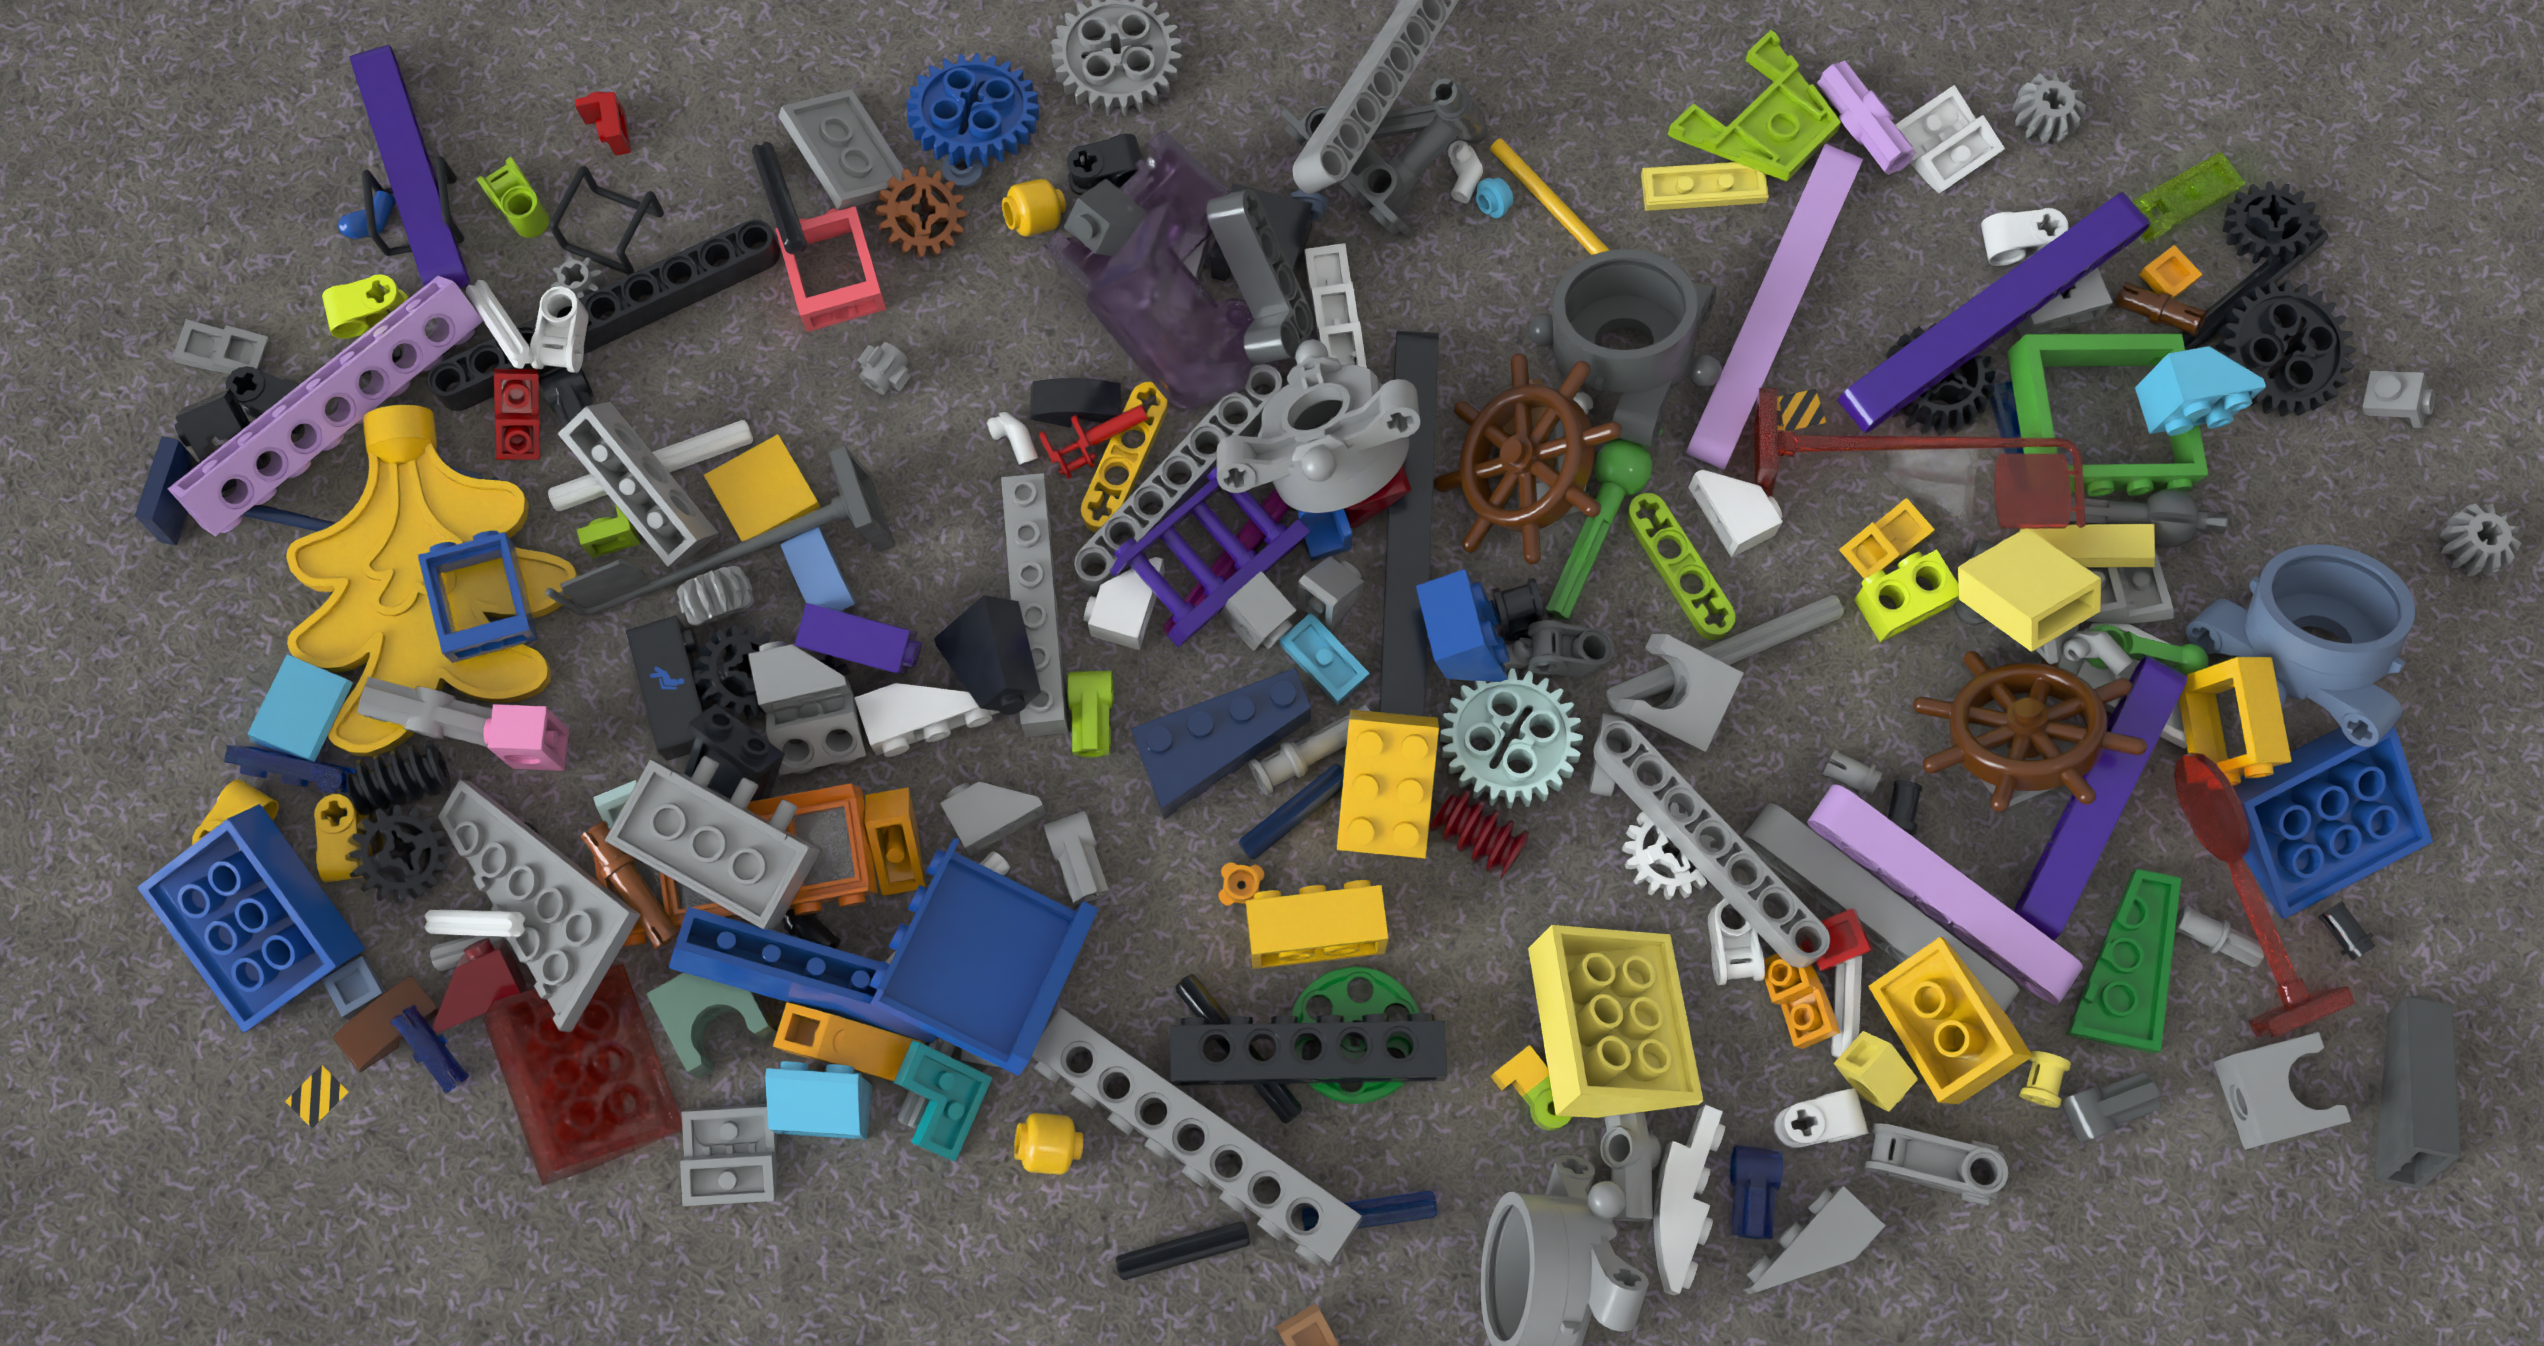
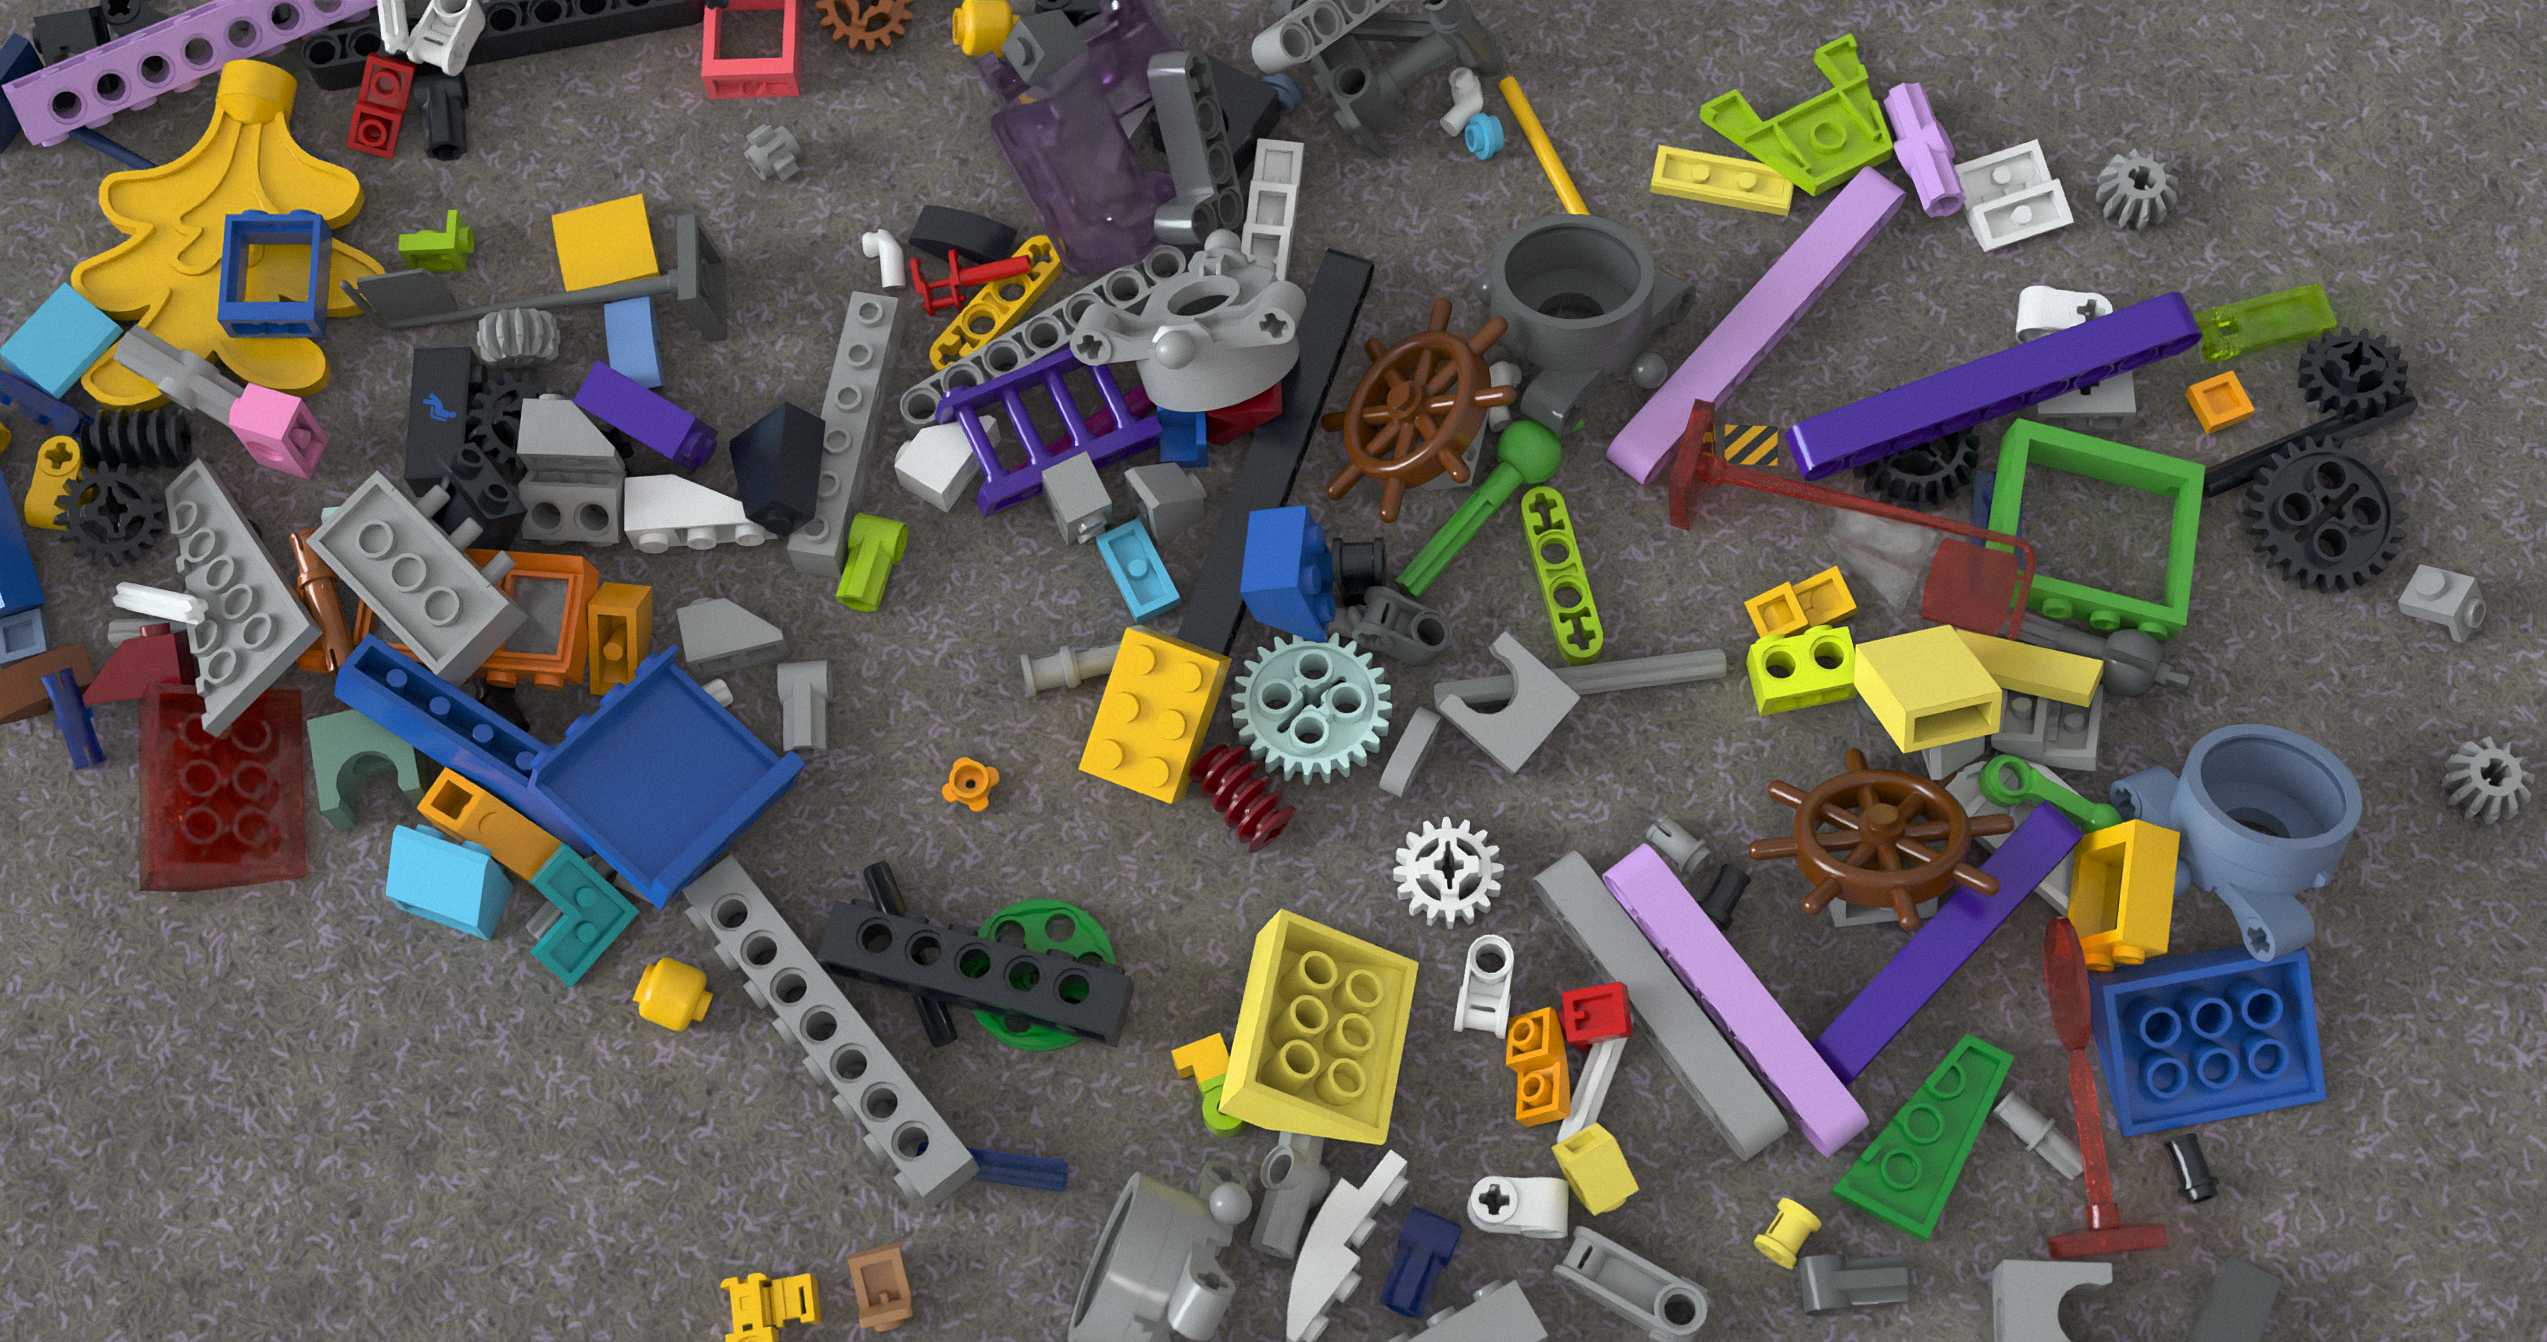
camera: 20 degrees right, 5 degrees down
(638, 483) = (476, 203): light grey brick -> none
(671, 457) = (501, 193): white axle -> none
(728, 1155) = (338, 916): light grey slope -> none
(1182, 1250) = (779, 1148): black axle -> none
(1218, 736) = (993, 620): dark blue wedge -> none
(1293, 812) = (1043, 726): dark blue axle -> none
(1316, 924) = (1029, 842): yellow brick -> none
(1713, 865) = (1489, 891): light grey beam -> none
(1736, 510) = (1642, 531): white slope -> none
(1949, 1023) = (1692, 1139): yellow slope -> none
(2096, 645) = (1989, 772): light grey arm -> none
(2161, 308) = (2194, 435): reddish brown pin -> none
(2195, 390) = (2189, 524): medium azure slope -> none

